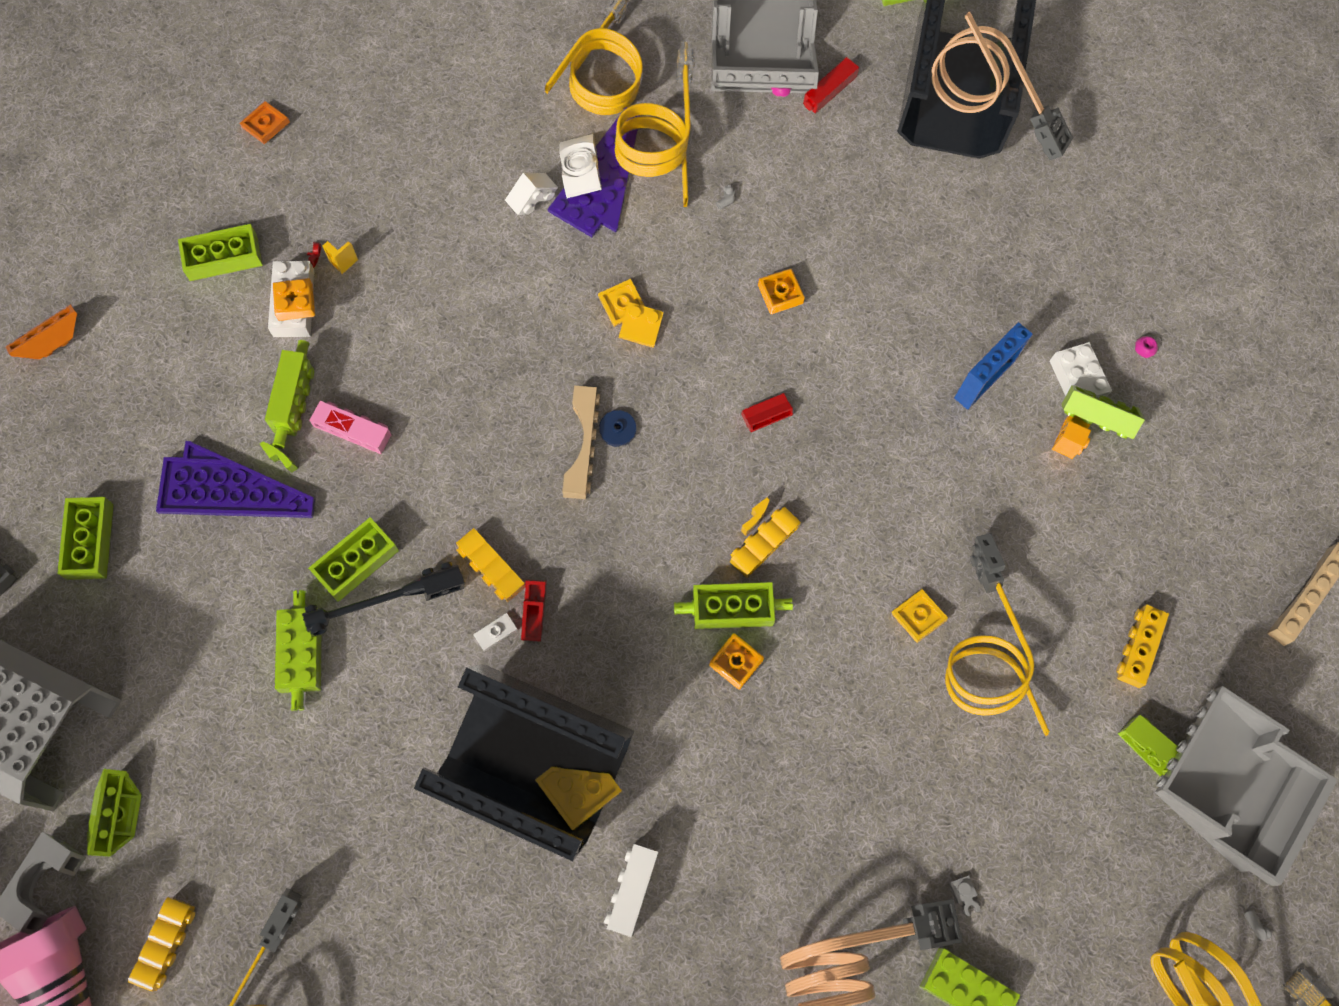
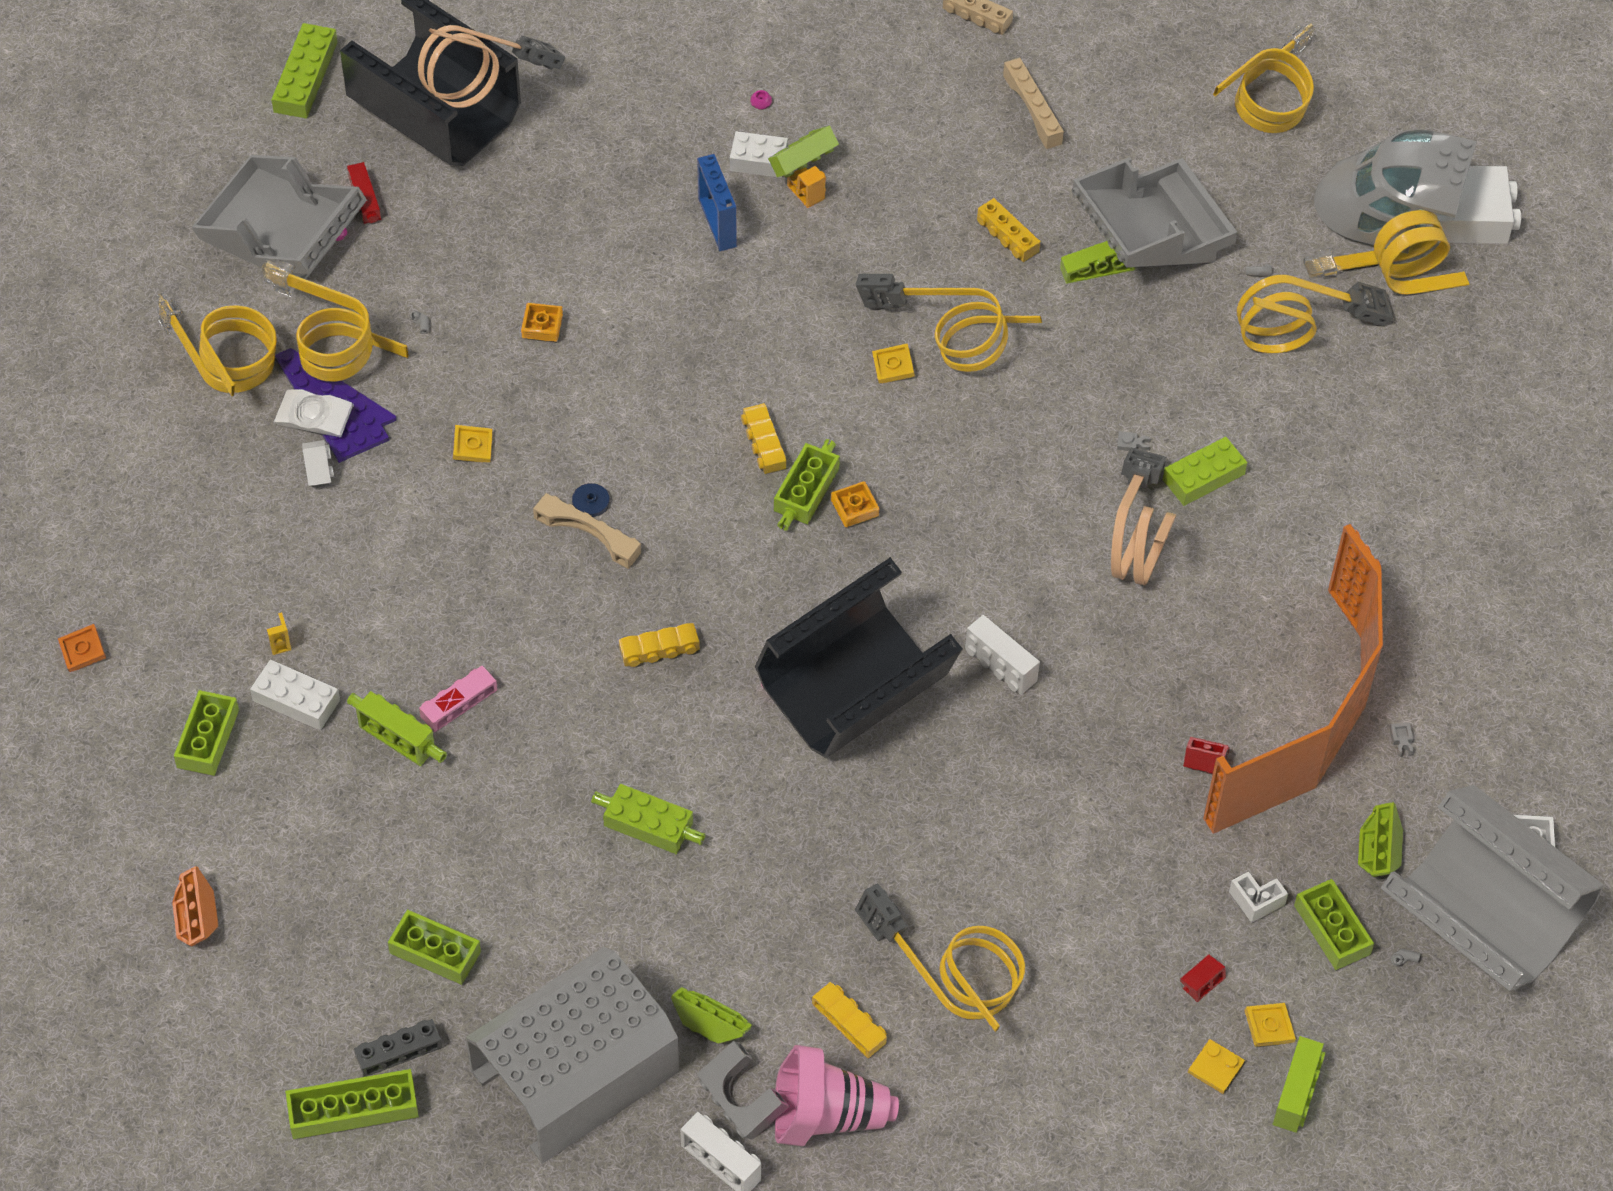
camera: 60 degrees left, 15 degrees down
(218, 486) = (444, 831): dark purple wing -> none
(276, 455) = (443, 768): lime slope -> none
(303, 301) = (317, 677): light orange brick -> none
(314, 257) = (251, 657): red piece -> none
(353, 559) = (590, 742): lime brick -> none
(430, 584) = (650, 695): black bar -> none
(495, 632) = (721, 668): white plate -> none
(533, 610) = (720, 630): red slope -> none
(577, 792) = (896, 652): yellow plate -> none
(641, 324) = (504, 438): yellow plate -> none
(758, 513) = (737, 432): yellow slope -> none
(767, 412) = (648, 385): red piece -> none

